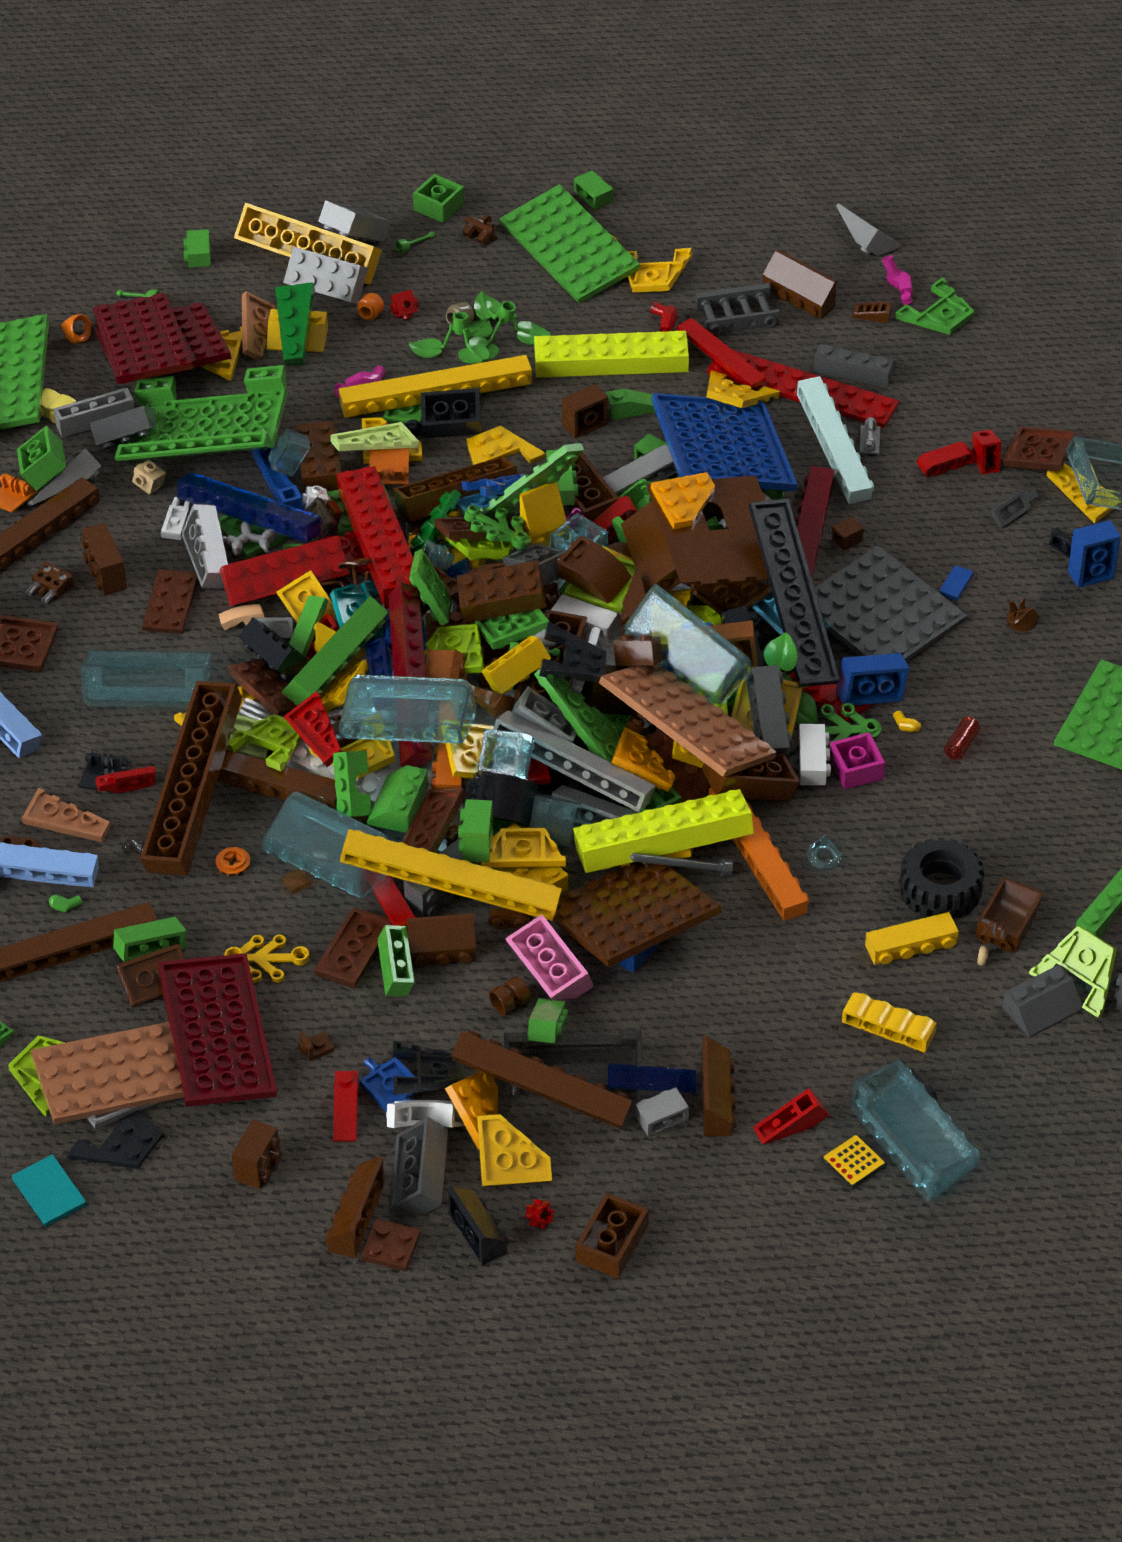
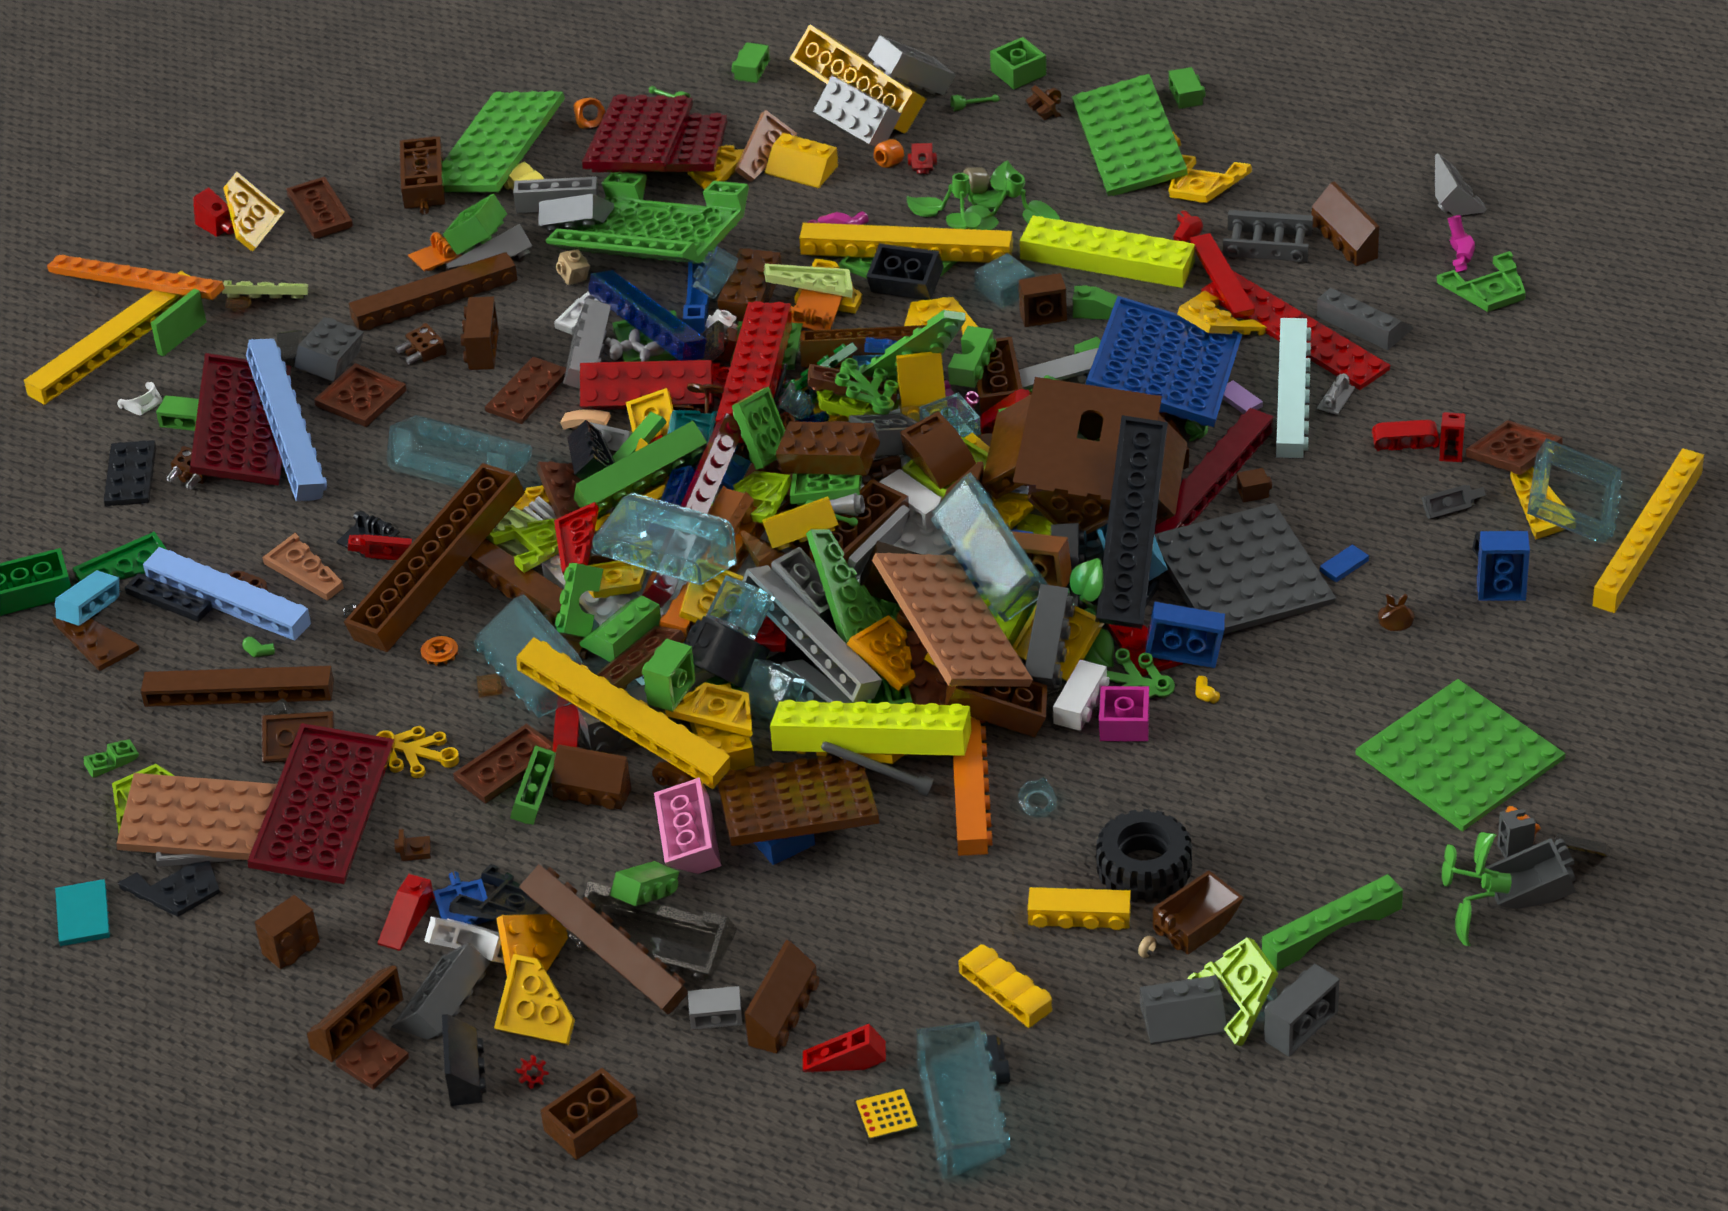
camera: 25 degrees right, 5 degrees down
(148, 937) = (309, 698): bright green brick -> none
(294, 315) = (795, 143): green wedge -> none
(414, 427) = (860, 279): black plate -> none
(510, 995) = (628, 851): reddish brown wheel -> none
(538, 401) = (1001, 280): none -> clear light blue brick
(580, 657) = (864, 534): black wing -> none
(637, 650) = (933, 539): reddish brown brick -> none
(651, 1078) = (715, 968): clear blue tile -> none
(683, 497) = (1067, 398): light orange plate -> none
(798, 461) = (1241, 398): none -> lavender tile
(878, 311) = (1421, 271): reddish brown slope -> none
(962, 738) = (1254, 721): clear red brick -> none

